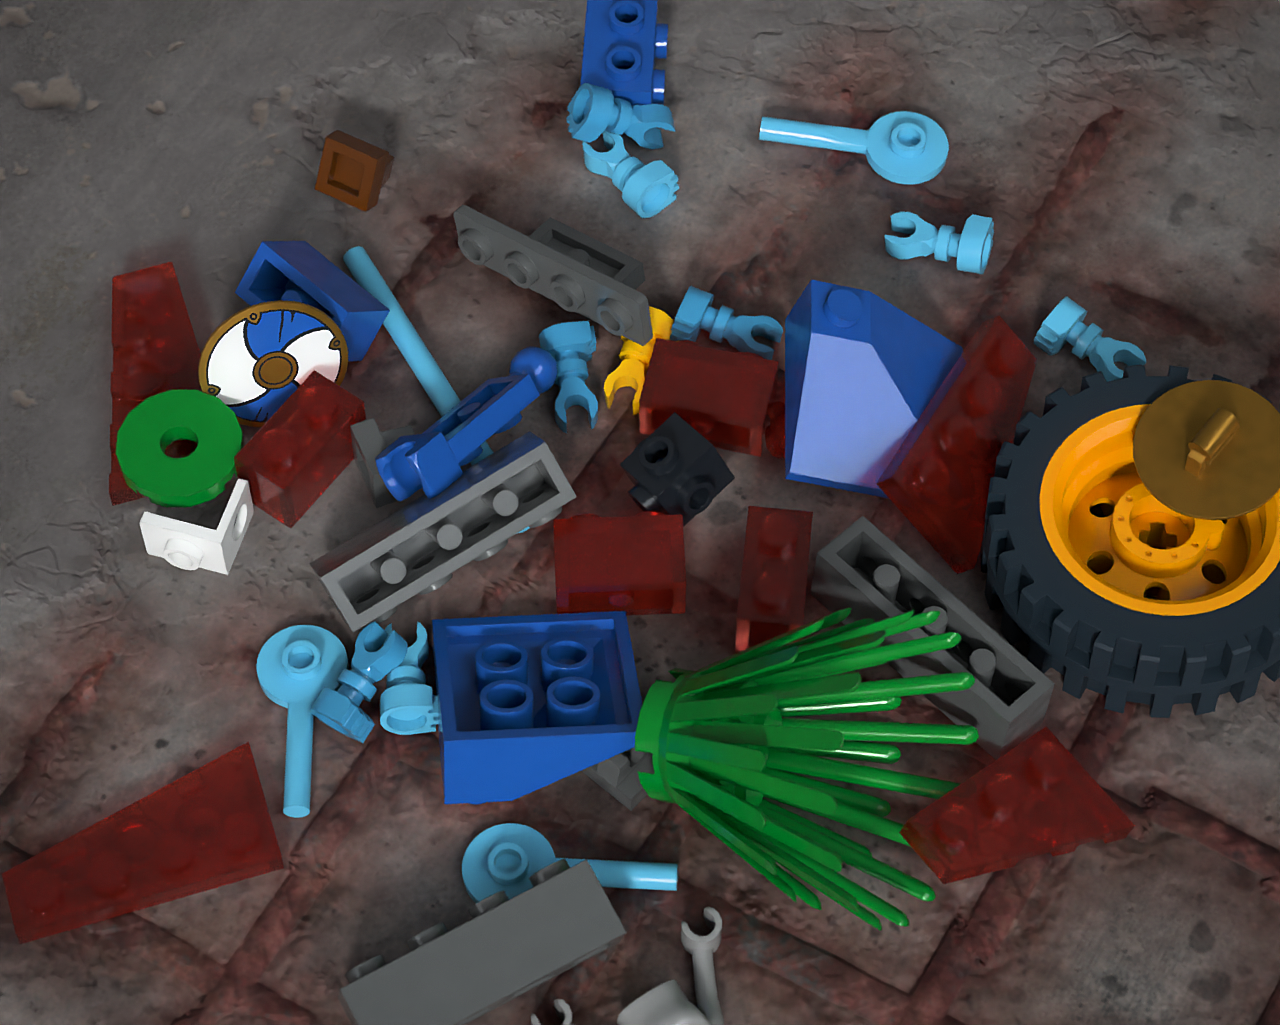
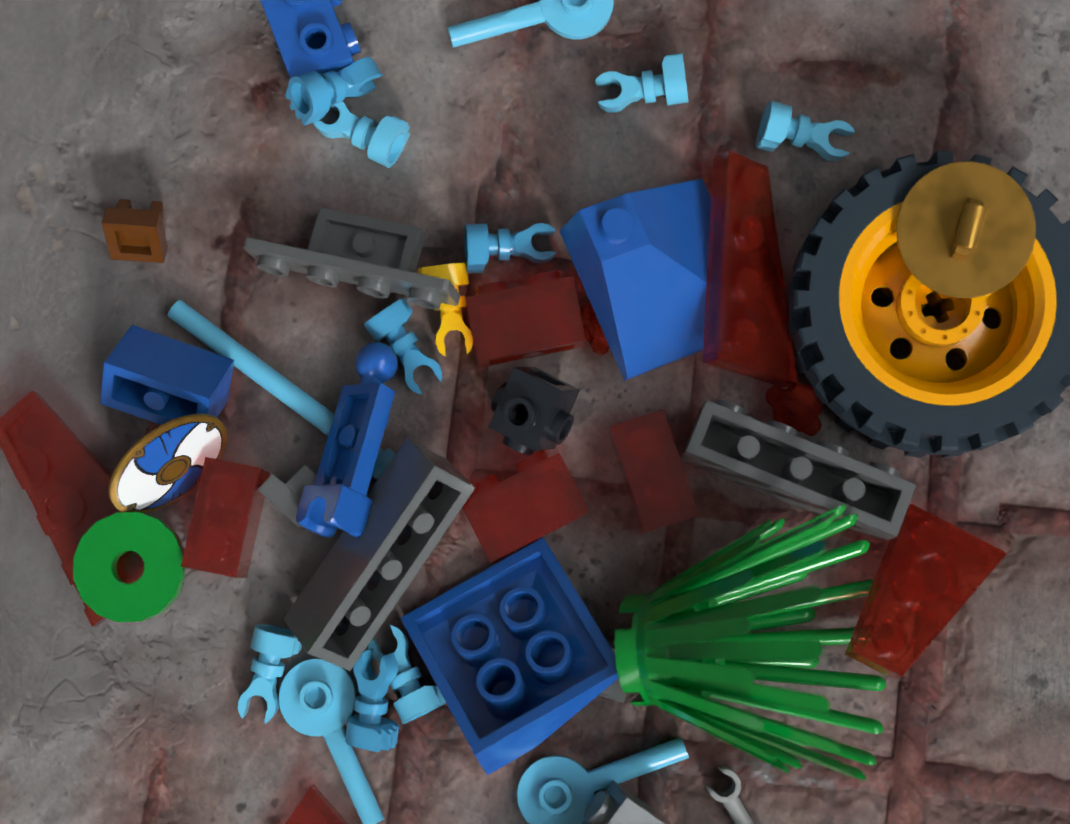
camera: 20 degrees left, 25 degrees up
(197, 546) = (184, 644): white bracket -> none
(283, 590) = (273, 644): none -> medium azure piece
(965, 581) = (802, 401): none -> clear red plate

